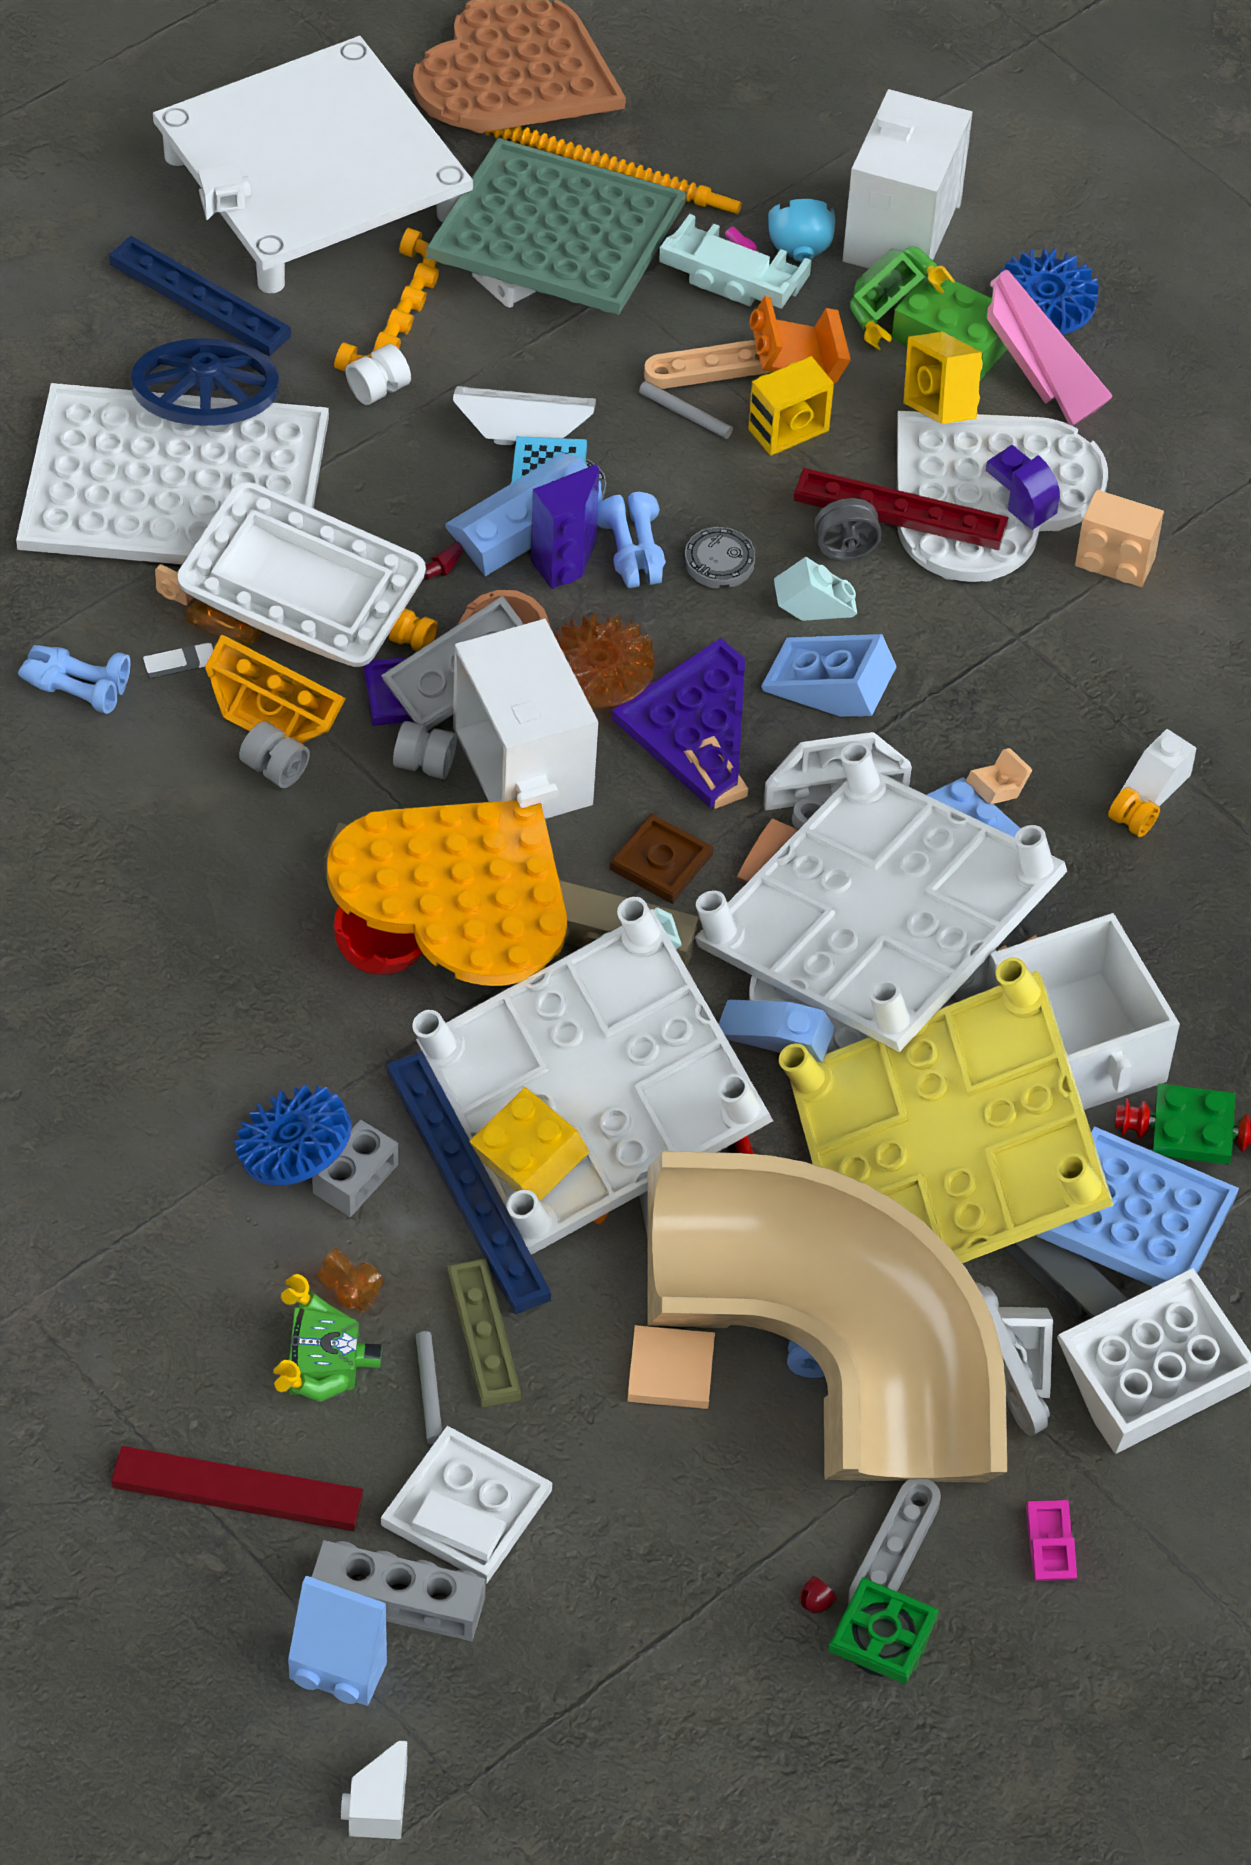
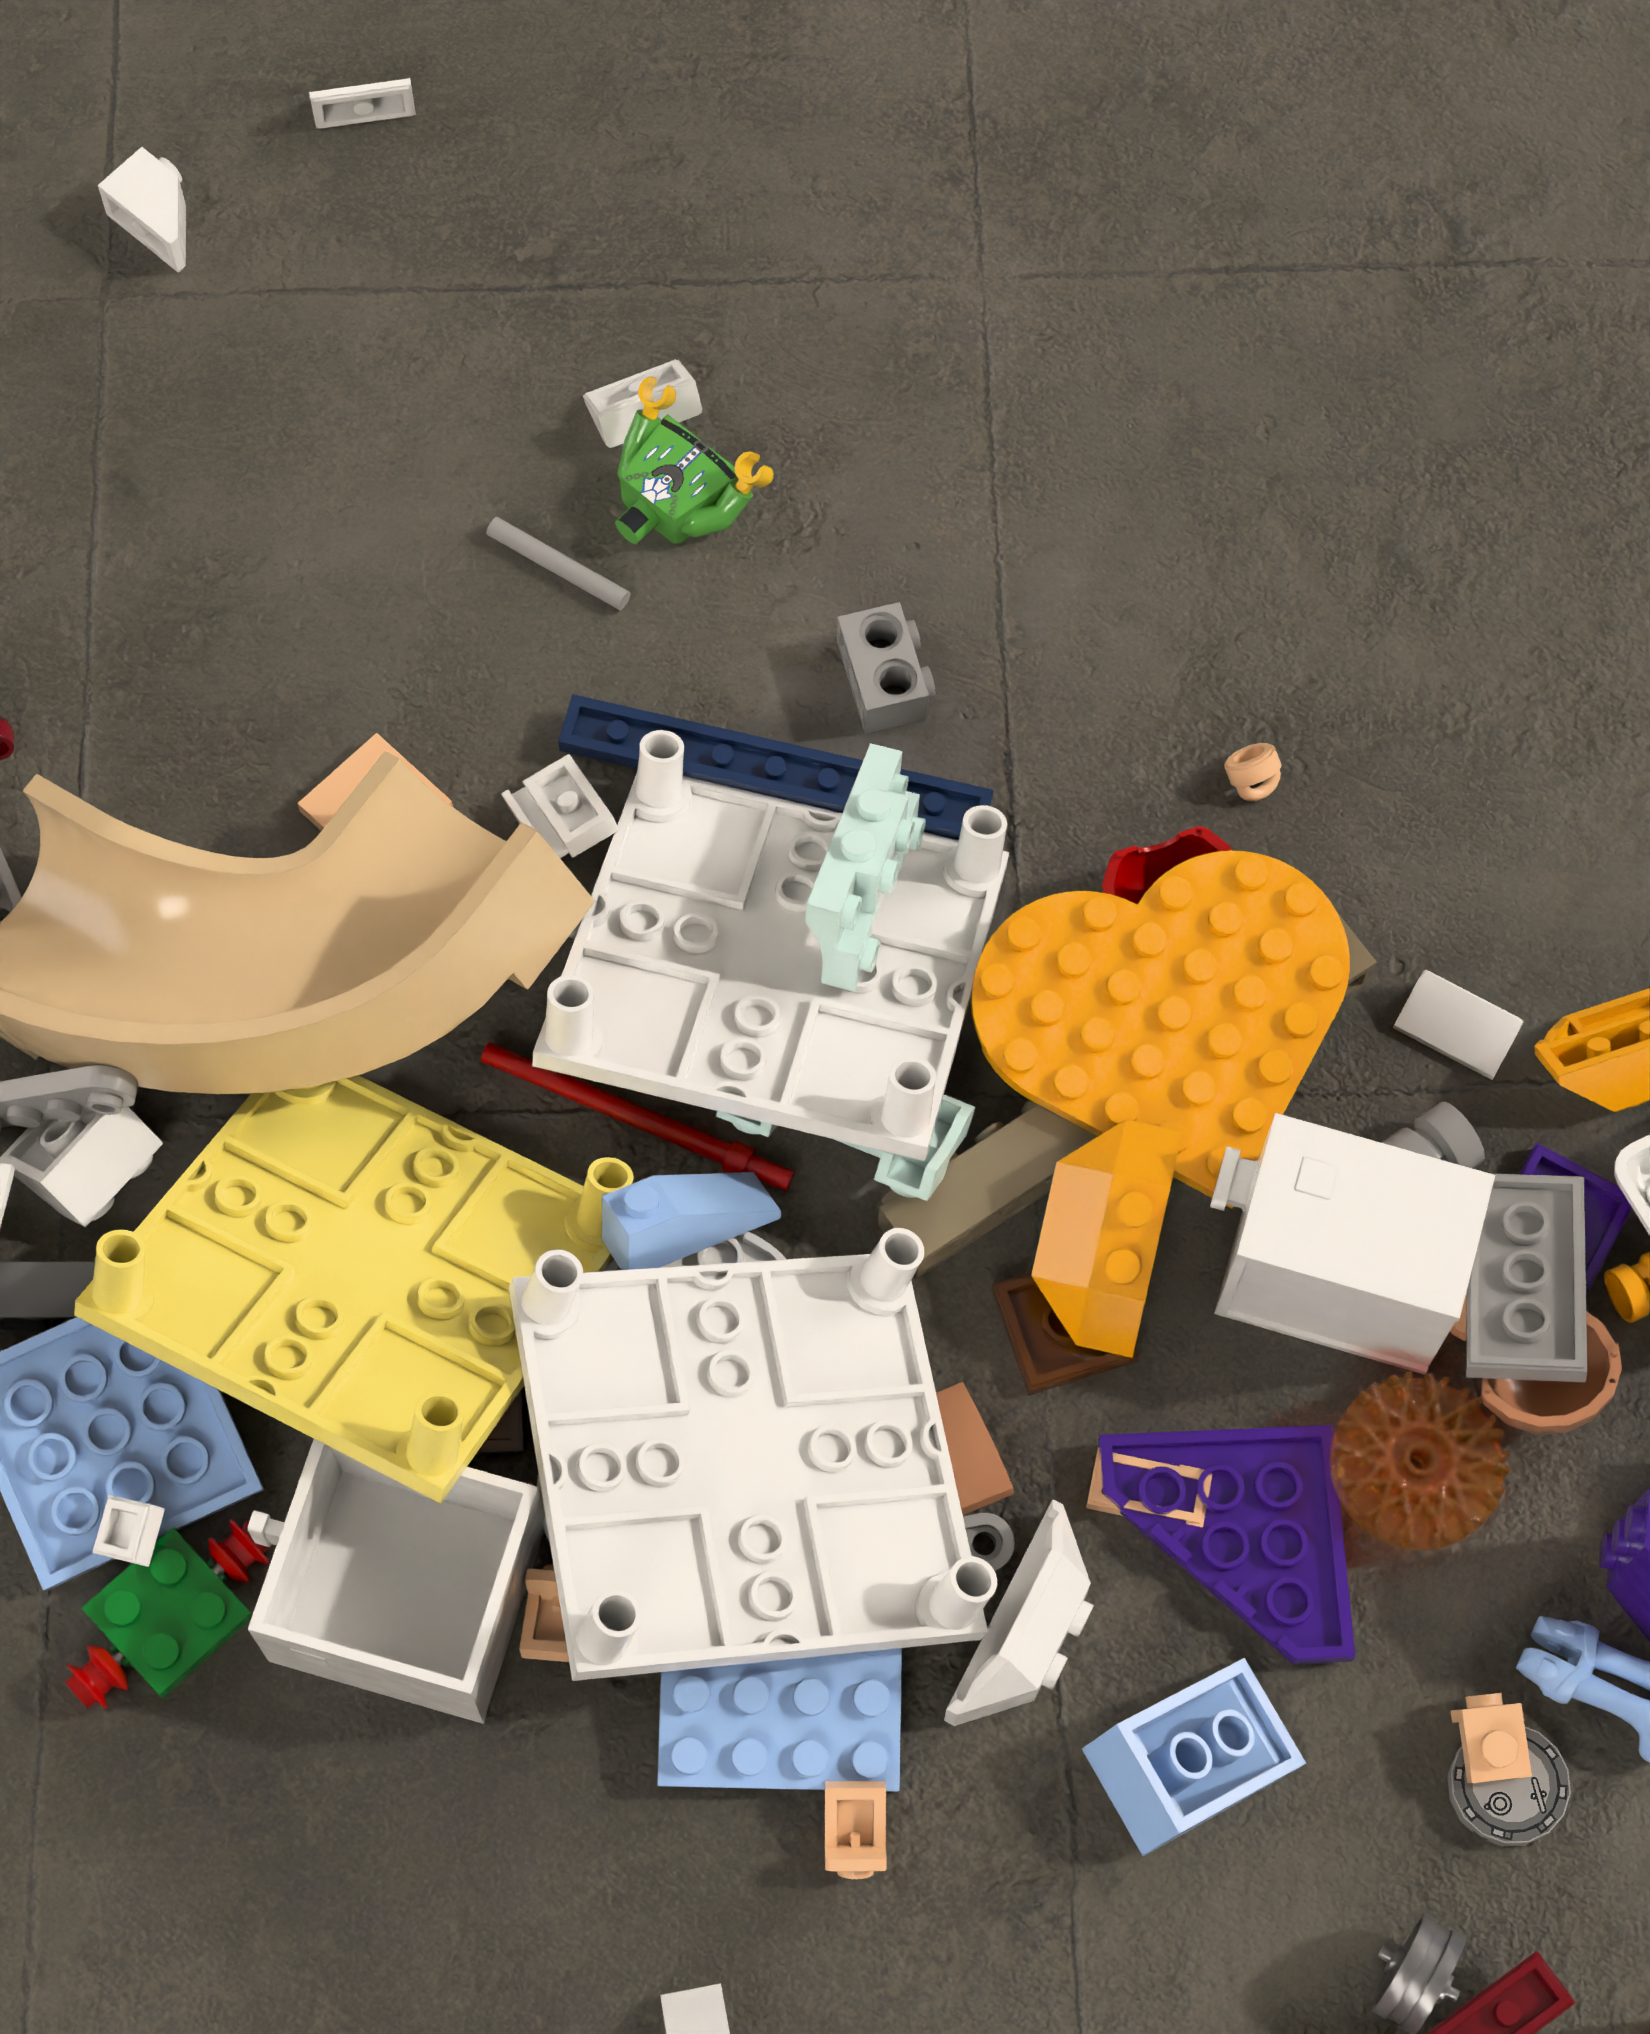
camera: 130 degrees right, 15 degrees up
(186, 1739) = (362, 103): none -> white slope
(237, 1488) = (594, 317): dark red tile -> none
(258, 958) = (1251, 766): none -> light nougat tile
(274, 754) = (1557, 977): light grey wheel -> none
(274, 1422) = (617, 403): none -> white slope
(294, 1137) = (964, 621): blue wheel -> none
(333, 787) = (1458, 1024): none -> white slope
(338, 1642) = (322, 254): light blue slope -> none
(353, 1285) = (733, 566): clear orange plate -> none
(413, 1606) = (357, 341): light grey brick -> none
(458, 1525) = (359, 452): white tile -> none
(474, 1477) = (388, 495): white plate -> none
(484, 1333) = (576, 658): olive tile -> none
(508, 1047) = (862, 866): none -> light aqua bracket
(529, 1145) = (738, 820): yellow brick -> none
(594, 1259) = (562, 808): none -> white plate
(604, 832) = (1105, 1233): none -> light orange wedge
(705, 567) = (1493, 1739): none -> light nougat bracket
(814, 592) = (1344, 1850): light aqua slope -> none
(1134, 812) = (667, 1965): light orange wheel -> none
(1177, 1156) = (128, 1530): none -> white tile

